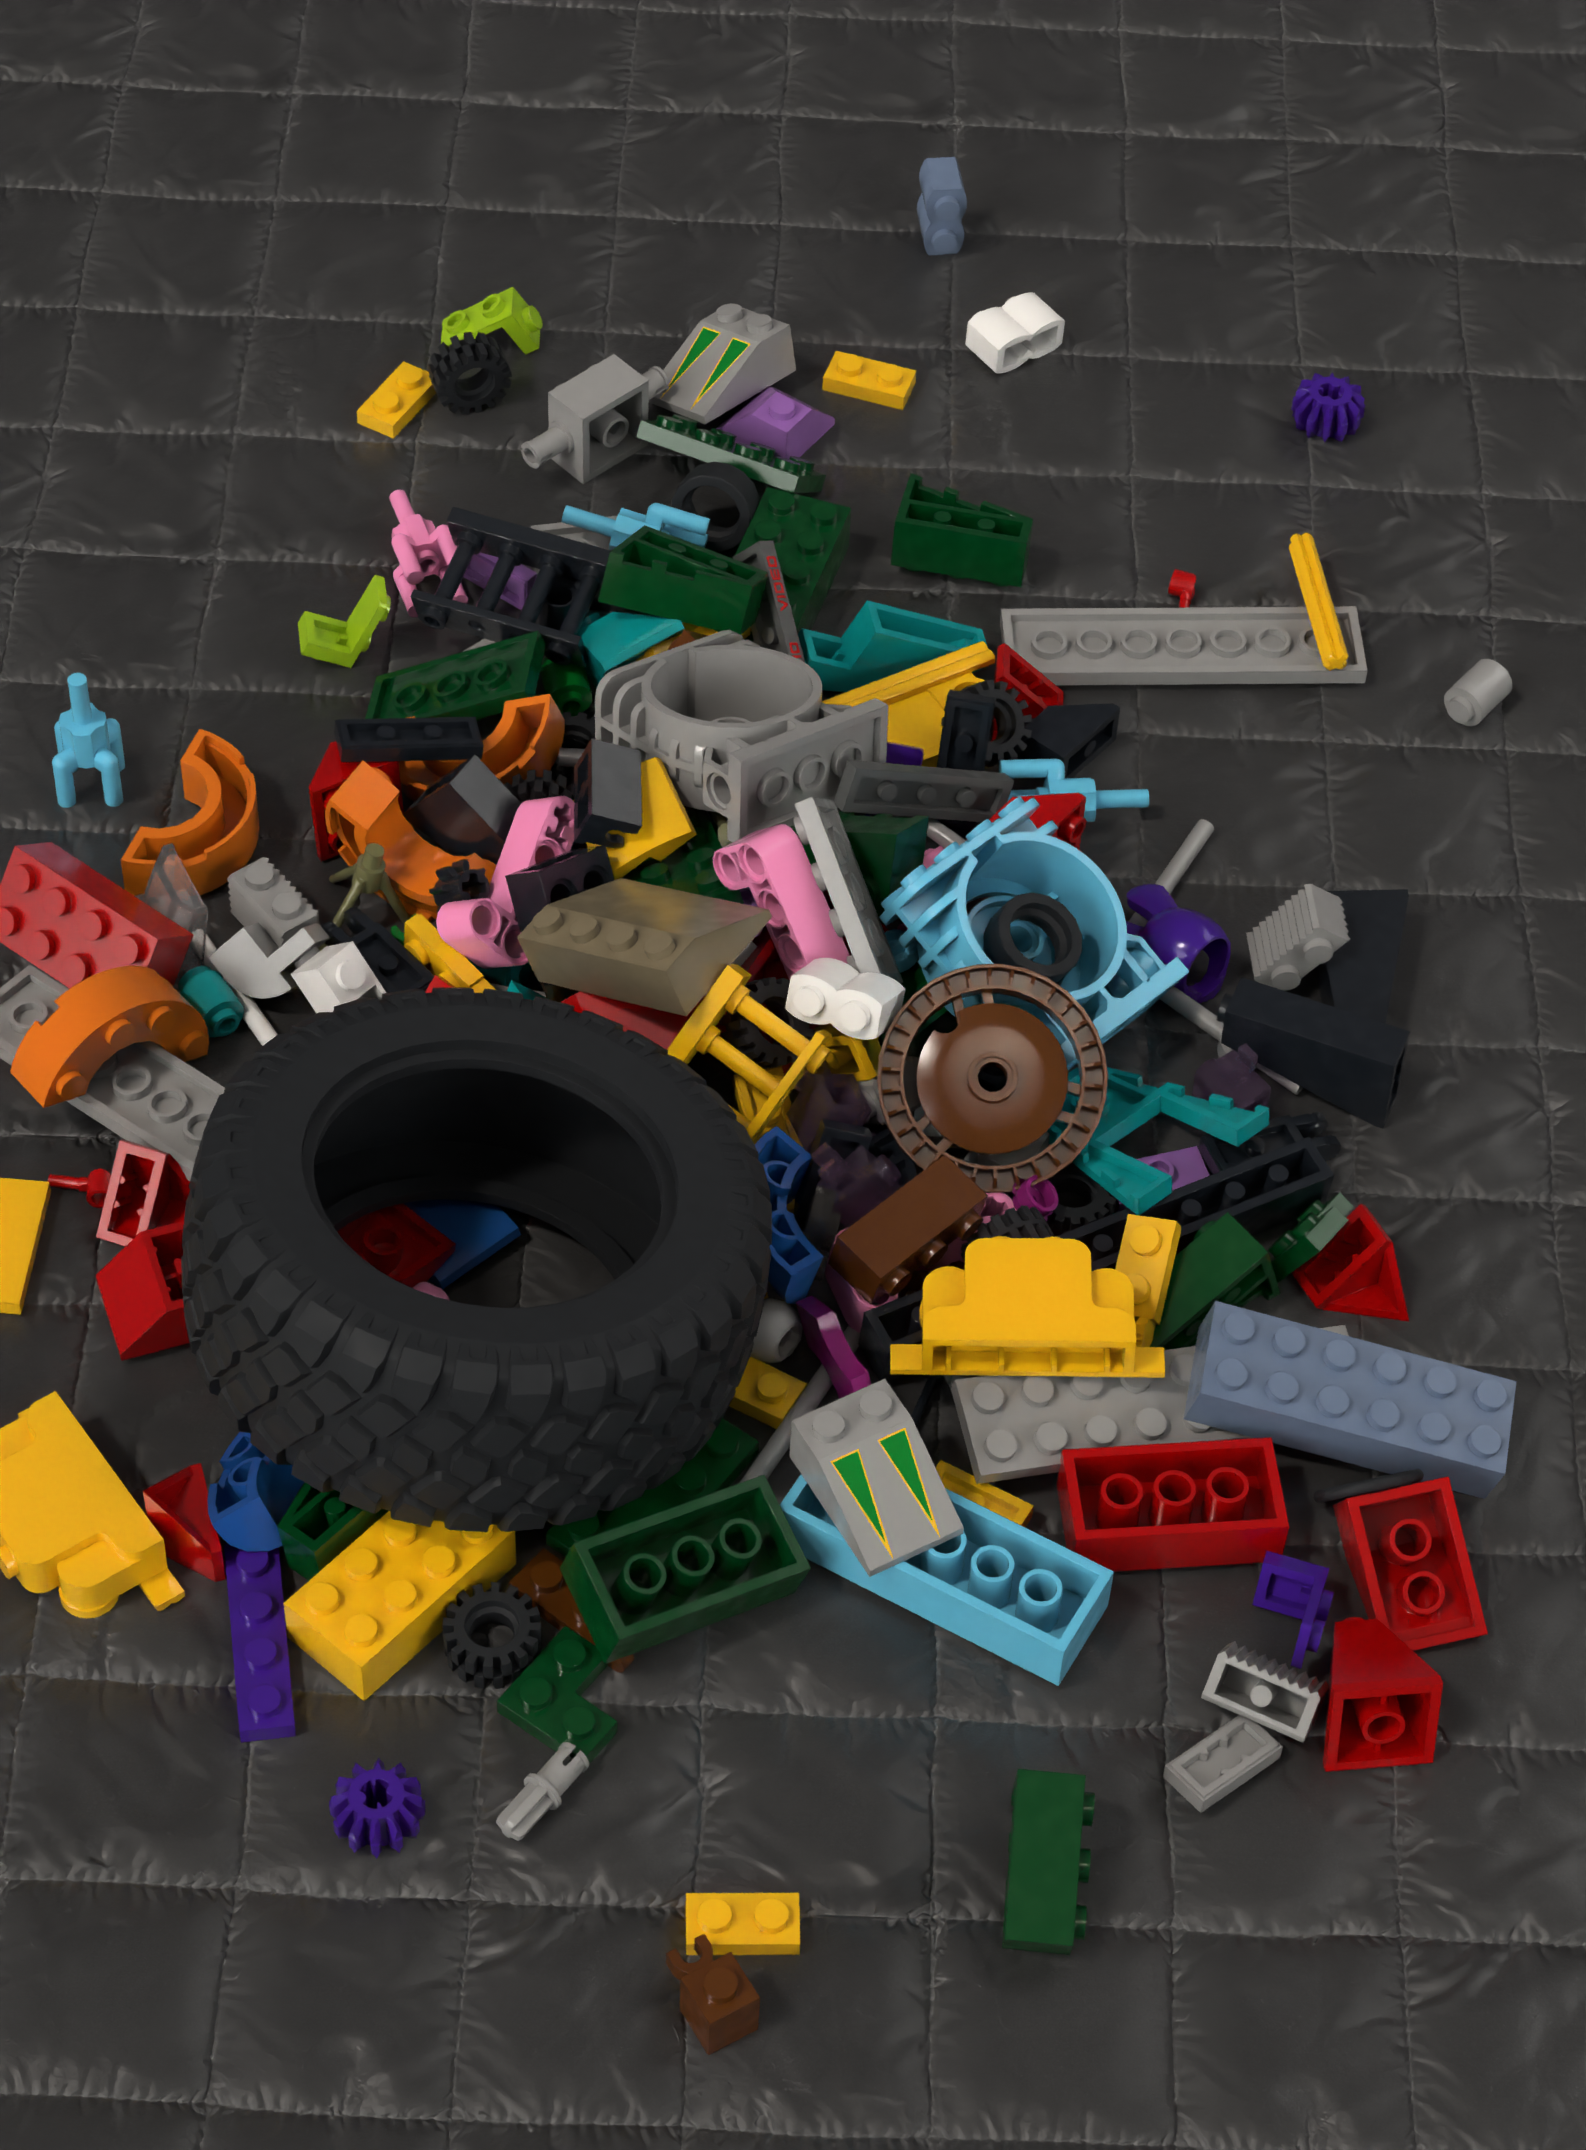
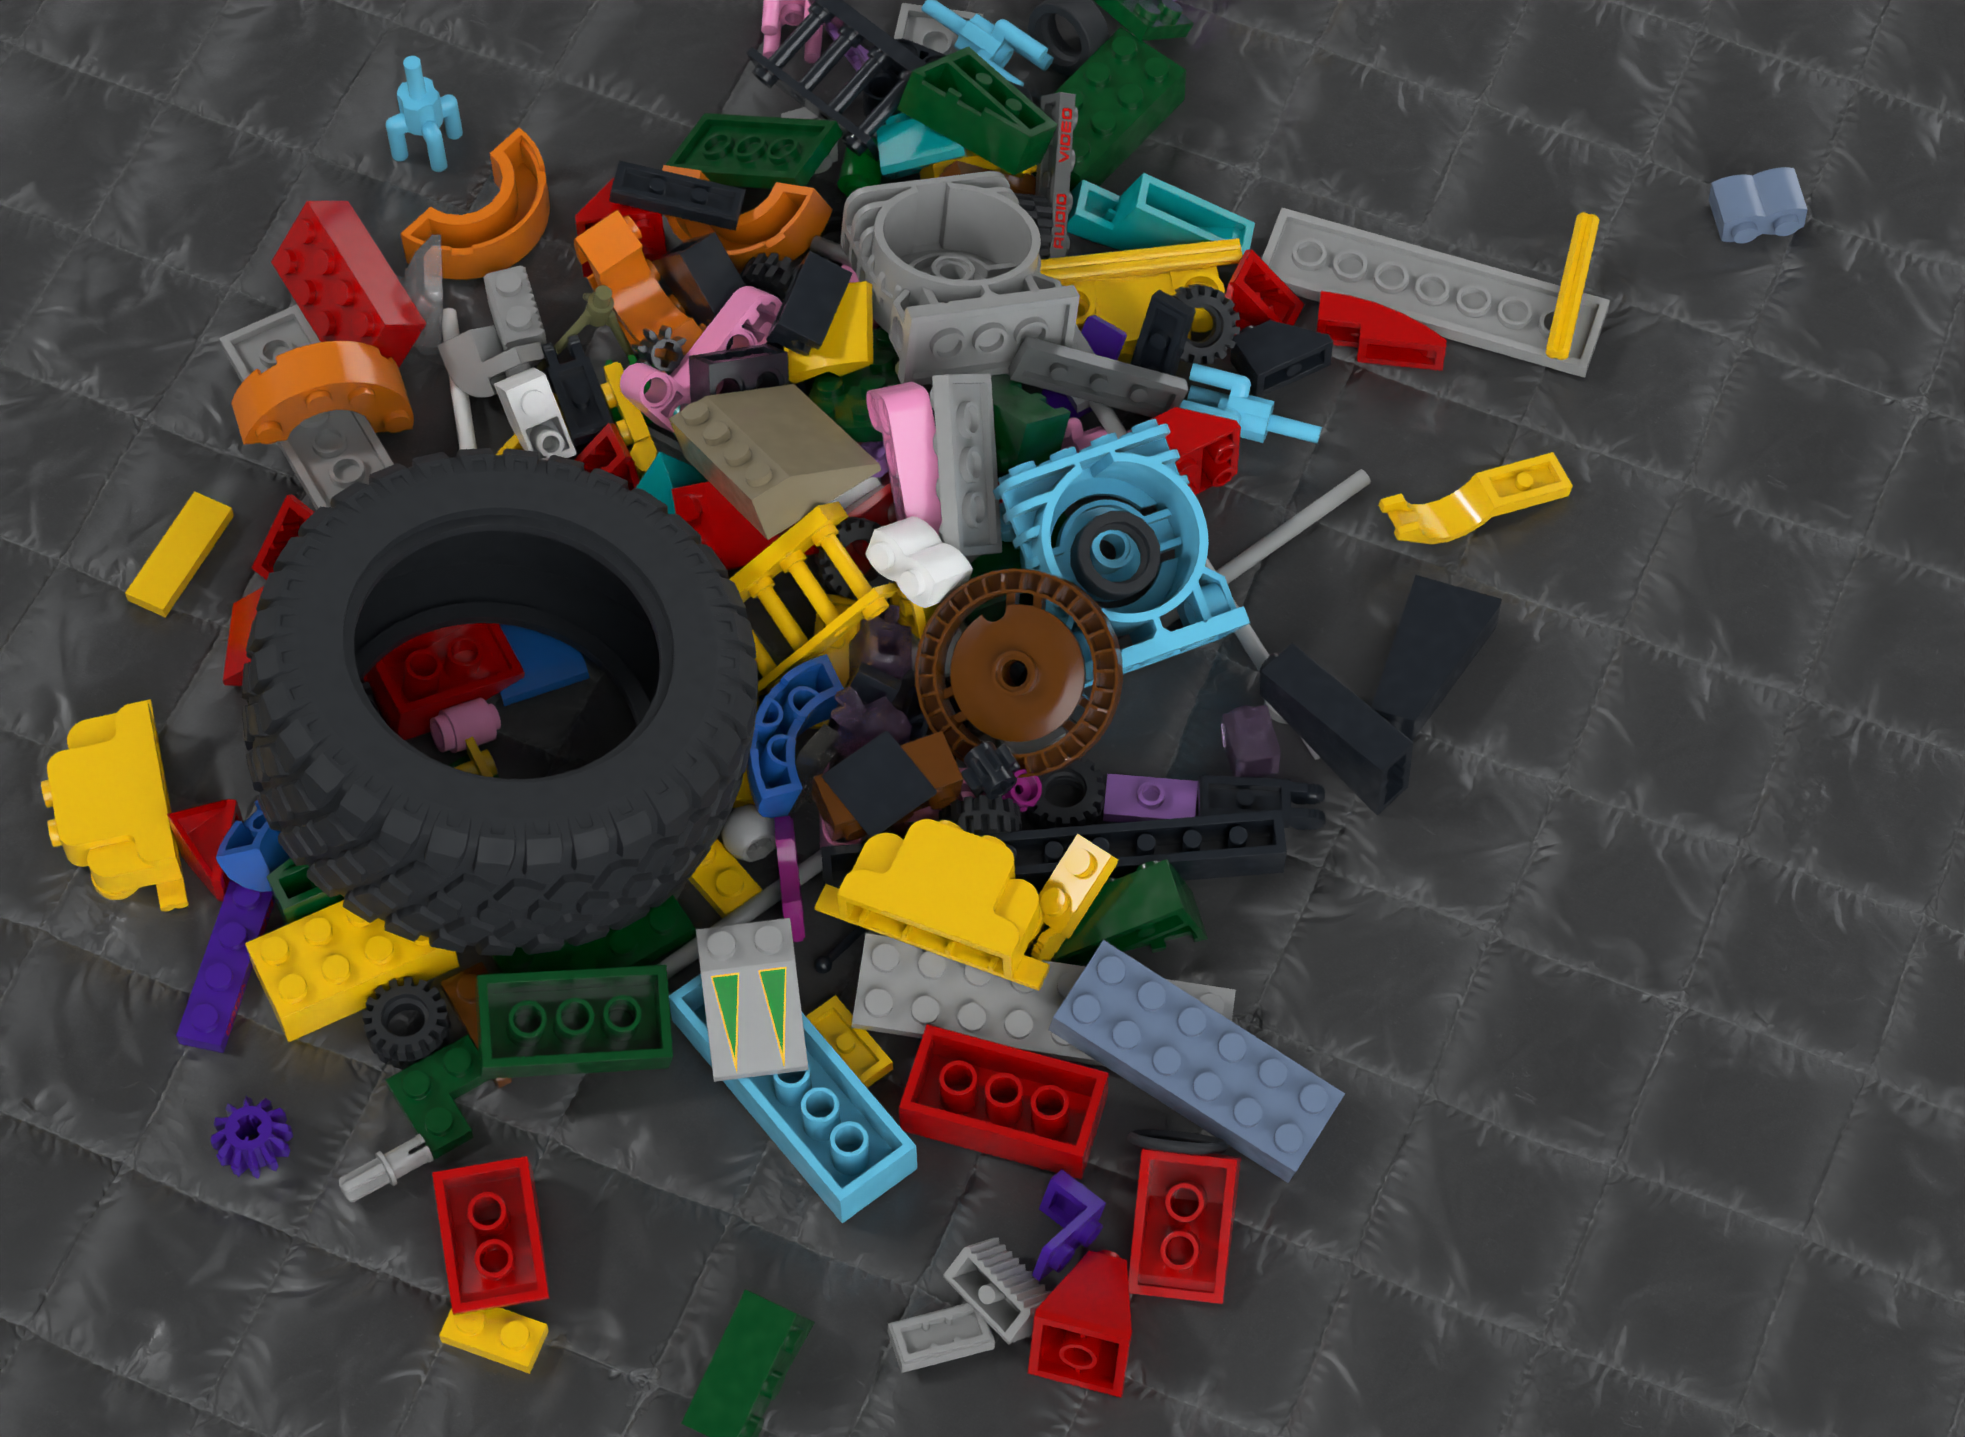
camera: 25 degrees right, 10 degrees up
(95, 1185) = (264, 519): red hand -> none
(212, 999) = (429, 384): teal brick -> none
(340, 640) = (689, 67): lime bracket -> none
(698, 1816) = (491, 1235): none -> red slope
(715, 1996) = (438, 1386): reddish brown brick -> none
(907, 1224) = (879, 784): none -> black sticker
(959, 538) = (1275, 124): dark green wedge -> none
(1009, 1180) = (990, 770): none -> black gear
(1132, 1104) = (1142, 722): teal wing -> none
(1156, 692) = (1379, 333): none -> red slope
(1181, 934) = (1266, 580): dark purple piece -> none
(1183, 586) = (1465, 231): red hand -> none
(1297, 938) = (1375, 616): light grey brick -> none
(1315, 1229) = (1239, 899): dark green plate -> none
(1328, 407) = (1693, 85): dark purple gear -> none
(1330, 813) = (1480, 499): none -> yellow piece
(1356, 1271) = (1272, 942): red slope -> none
(1444, 491) = (1758, 205): none -> sand blue brick
(1477, 692) = (1679, 420): light grey brick -> none

